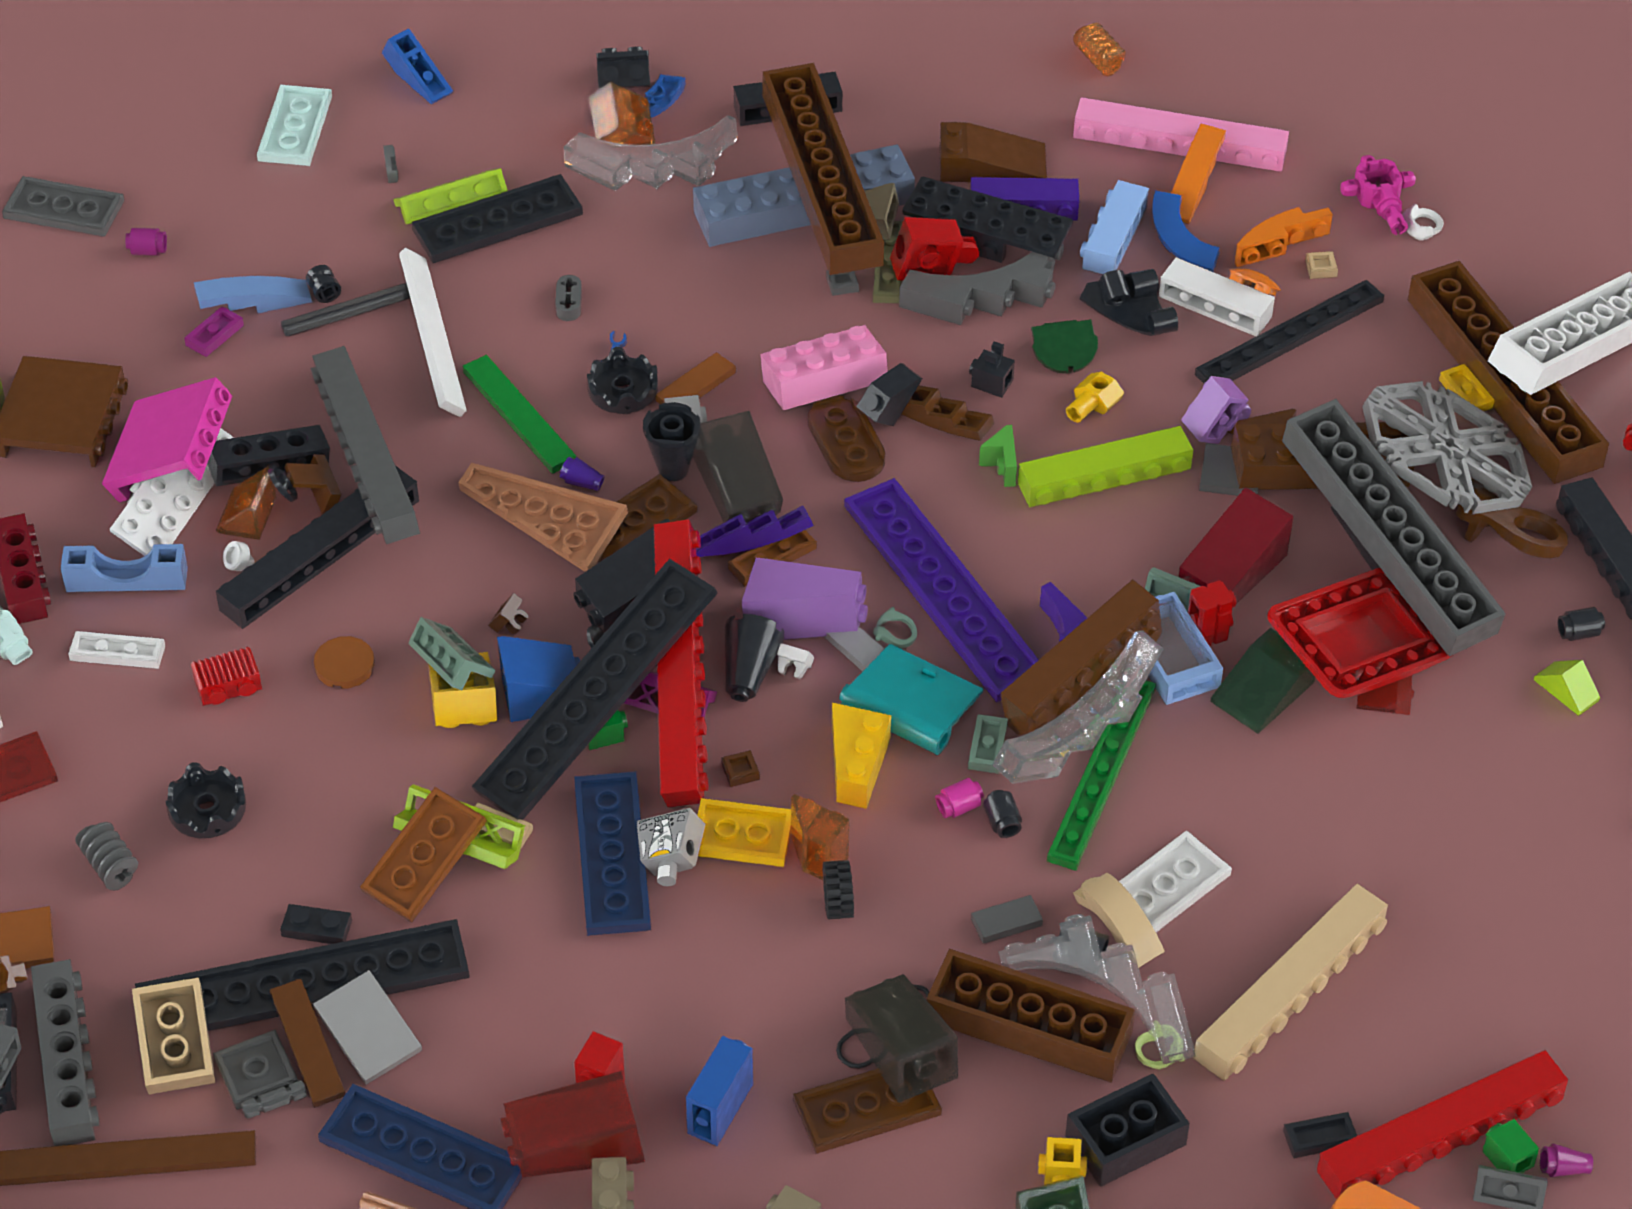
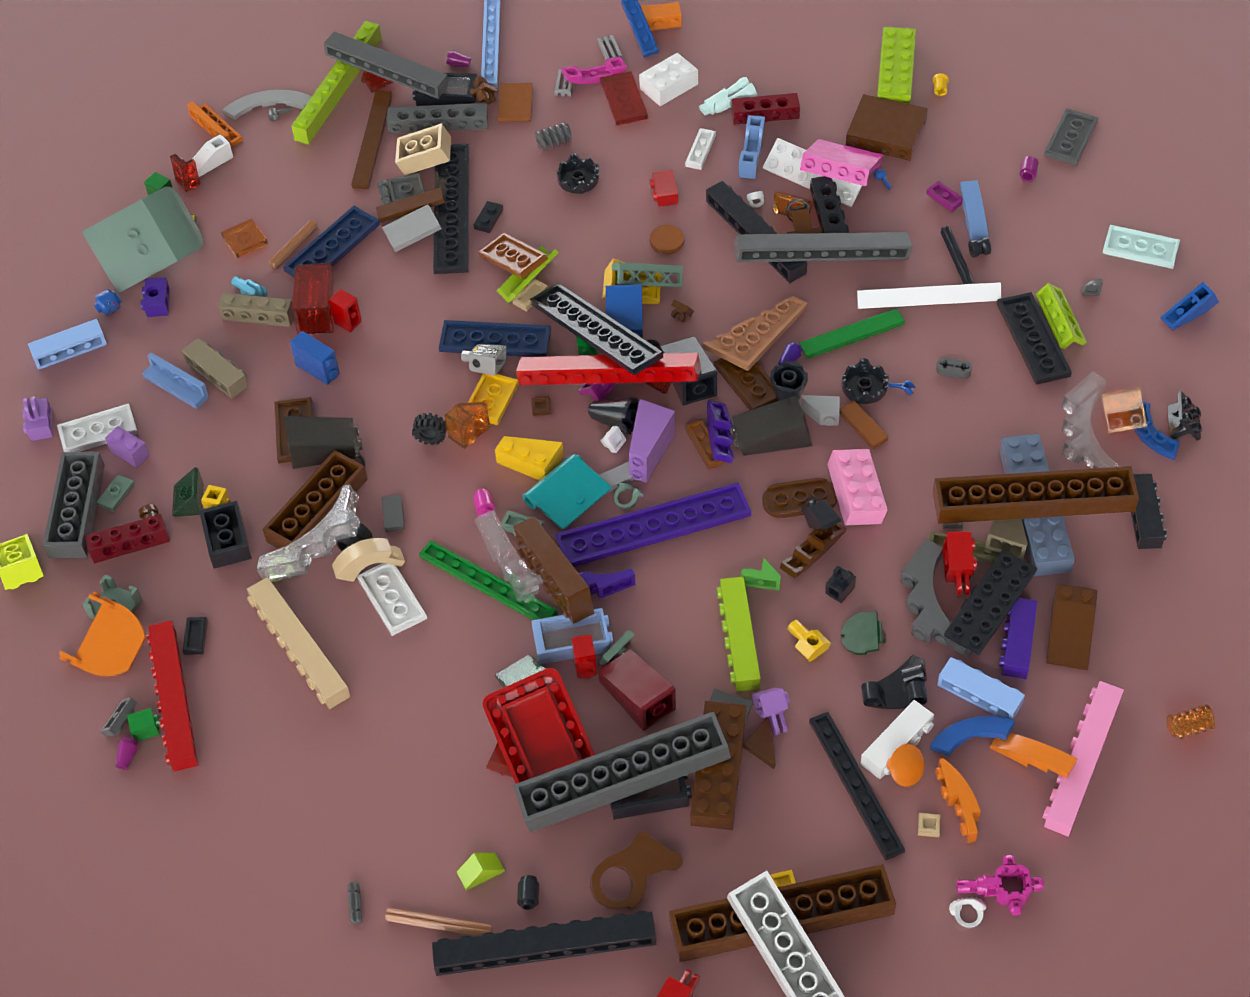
camera: 105 degrees right, 5 degrees up
(1003, 813) = (464, 522): black brick -> none
(1455, 451) = (692, 818): light grey plate -> none

